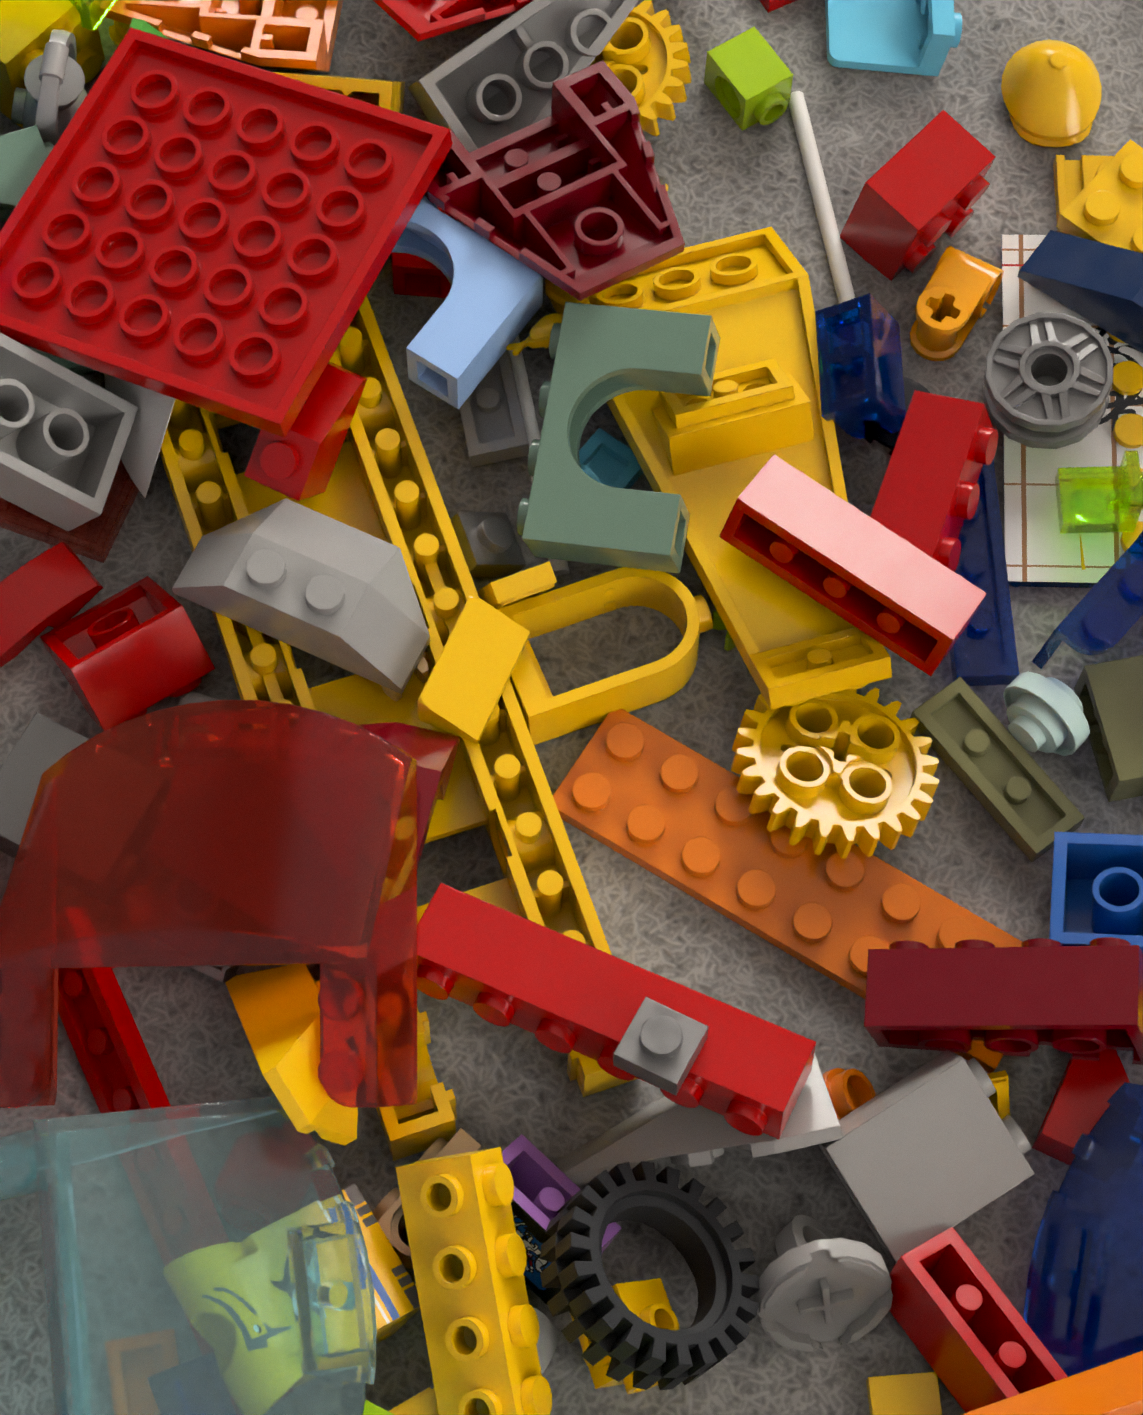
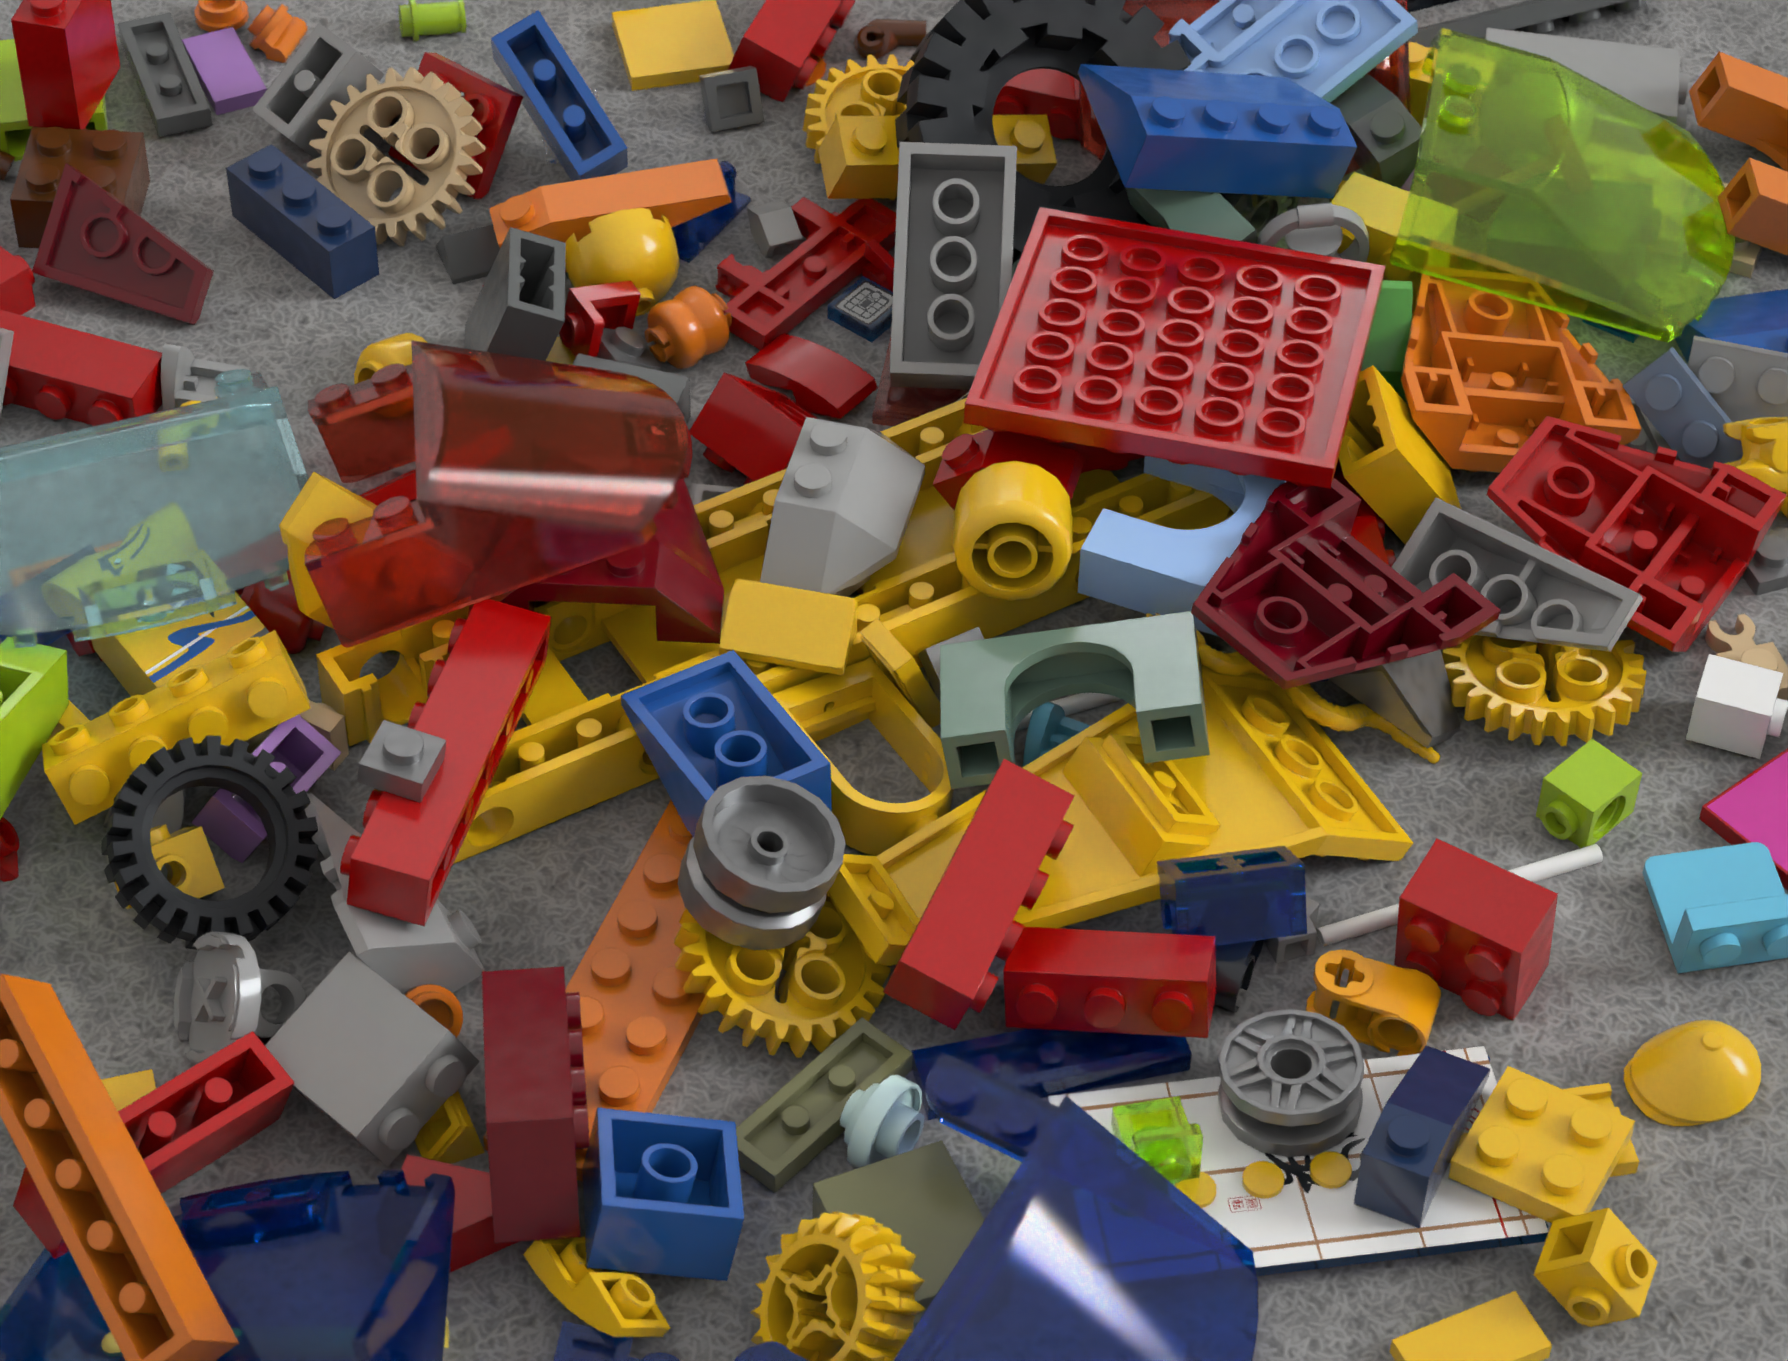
camera: 80 degrees right, 20 degrees down
(406, 435) = (1013, 530): none -> yellow head
(615, 757) = (720, 727): none -> blue slope
(800, 741) = (761, 862): none -> flat silver wheel

